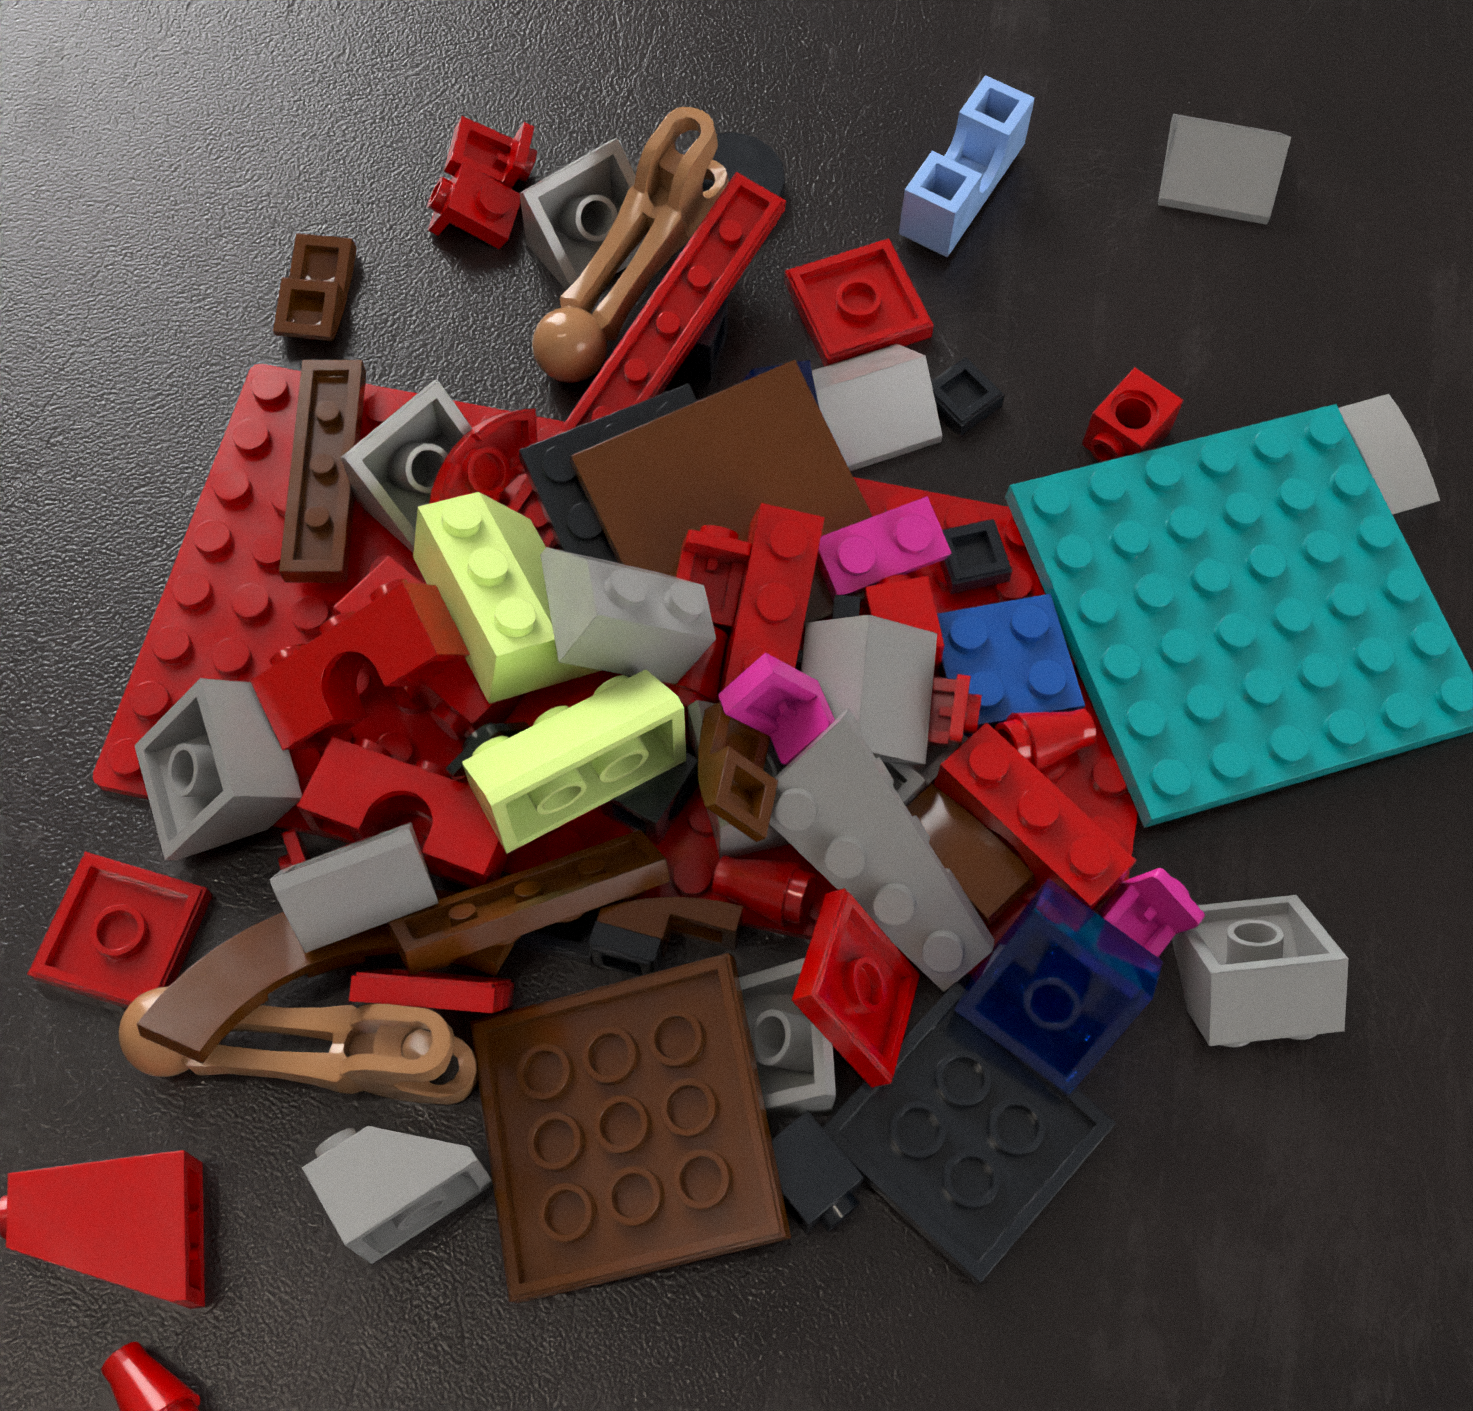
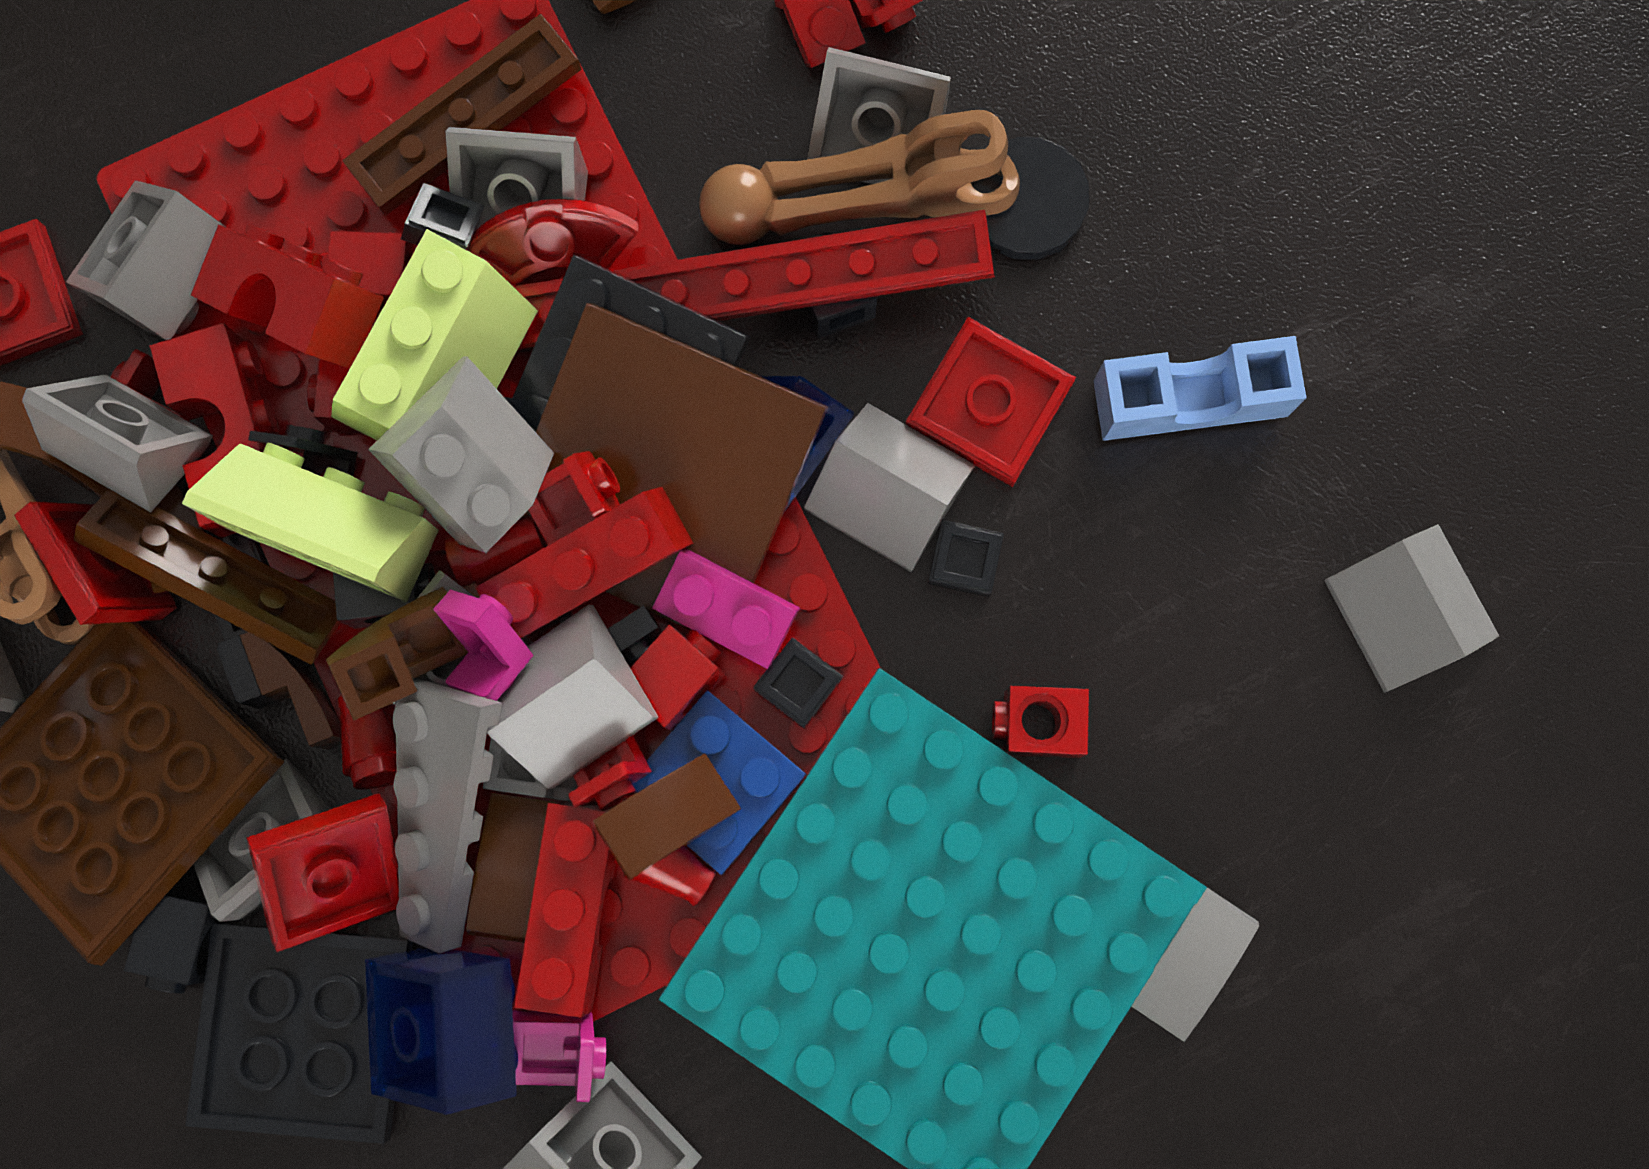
camera: 55 degrees right, 15 degrees up
(394, 522) = (443, 214): none -> black tile
(1019, 692) = (666, 816): none -> reddish brown slope

